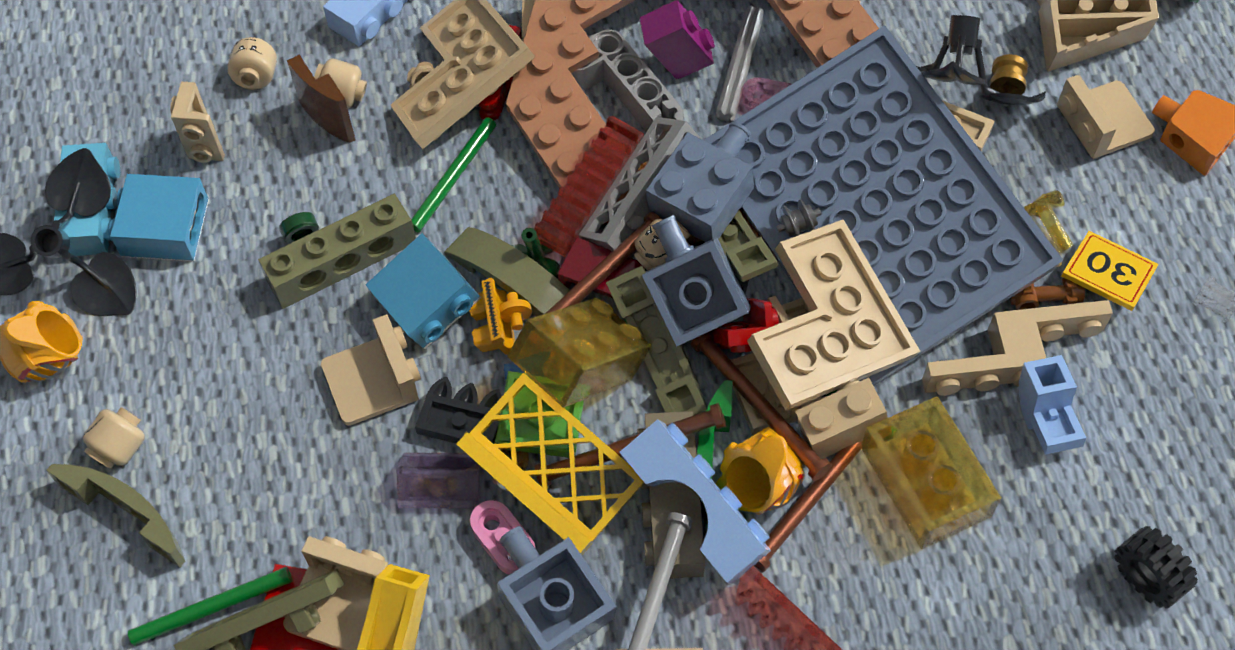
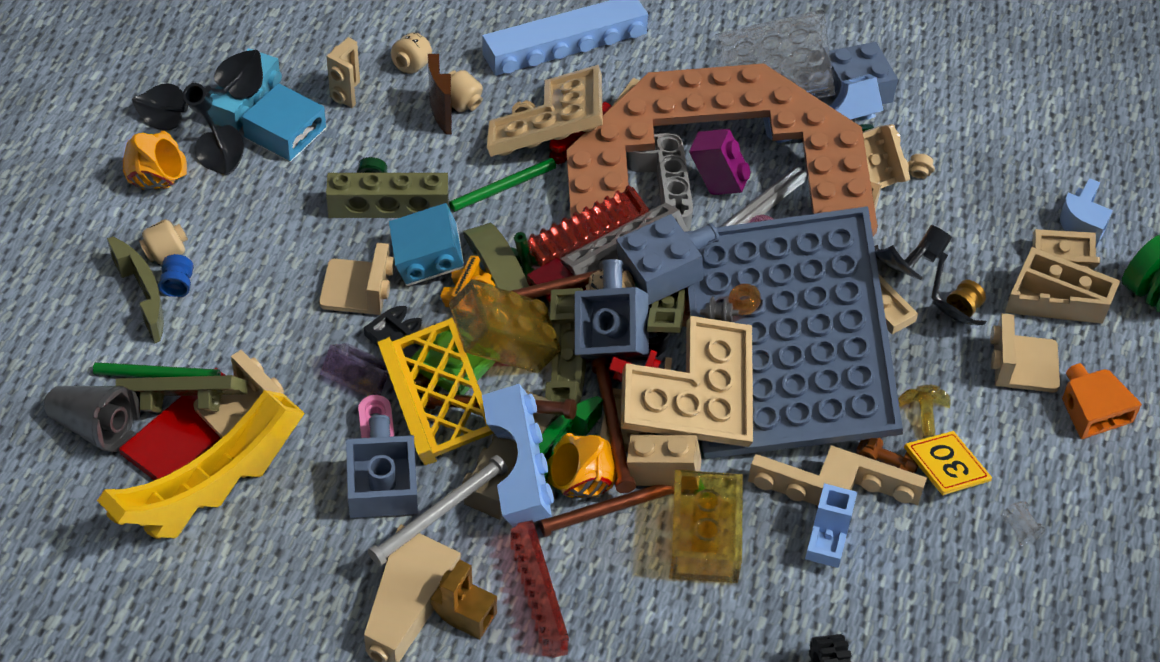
camera: 25 degrees right, 10 degrees down
(155, 471) = (175, 276): none -> blue wheel
(816, 201) = (748, 305): none -> clear orange plate

